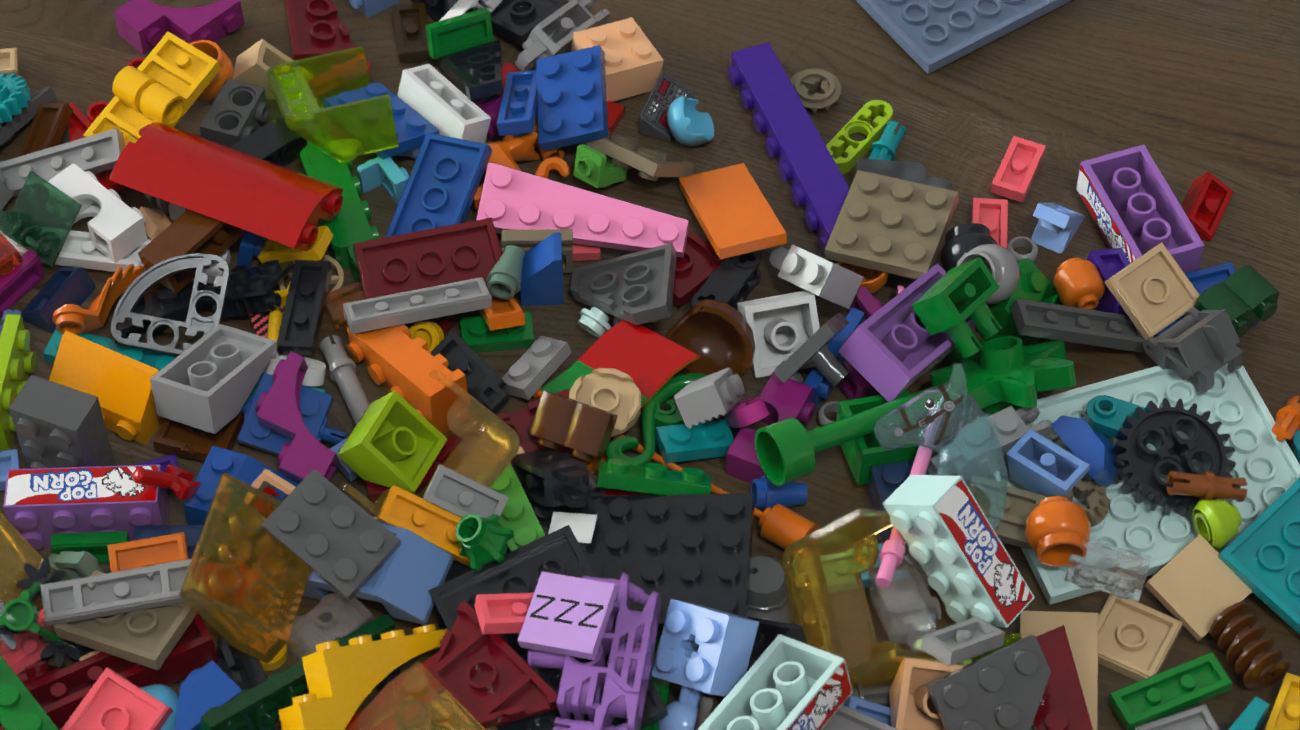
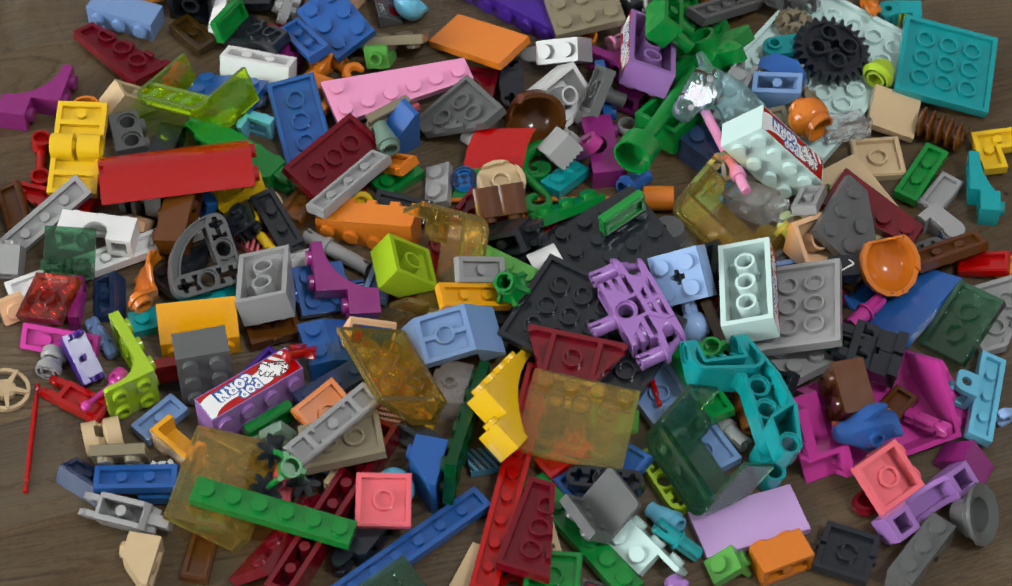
camera: 35 degrees left, 0 degrees up
(331, 534) = (426, 328): dark grey plate -> none
(502, 612) = (567, 312): coral plate -> none
(566, 371) = (463, 178): none -> clear blue tile
(568, 615) = (603, 295): lavender tile -> none
(594, 321) = (451, 144): light aqua plate -> none
(699, 522) = (622, 212): none -> green tile
(1144, 388) = (783, 24): none -> dark tan gear
(1206, 486) = (863, 56): dark orange pin -> none

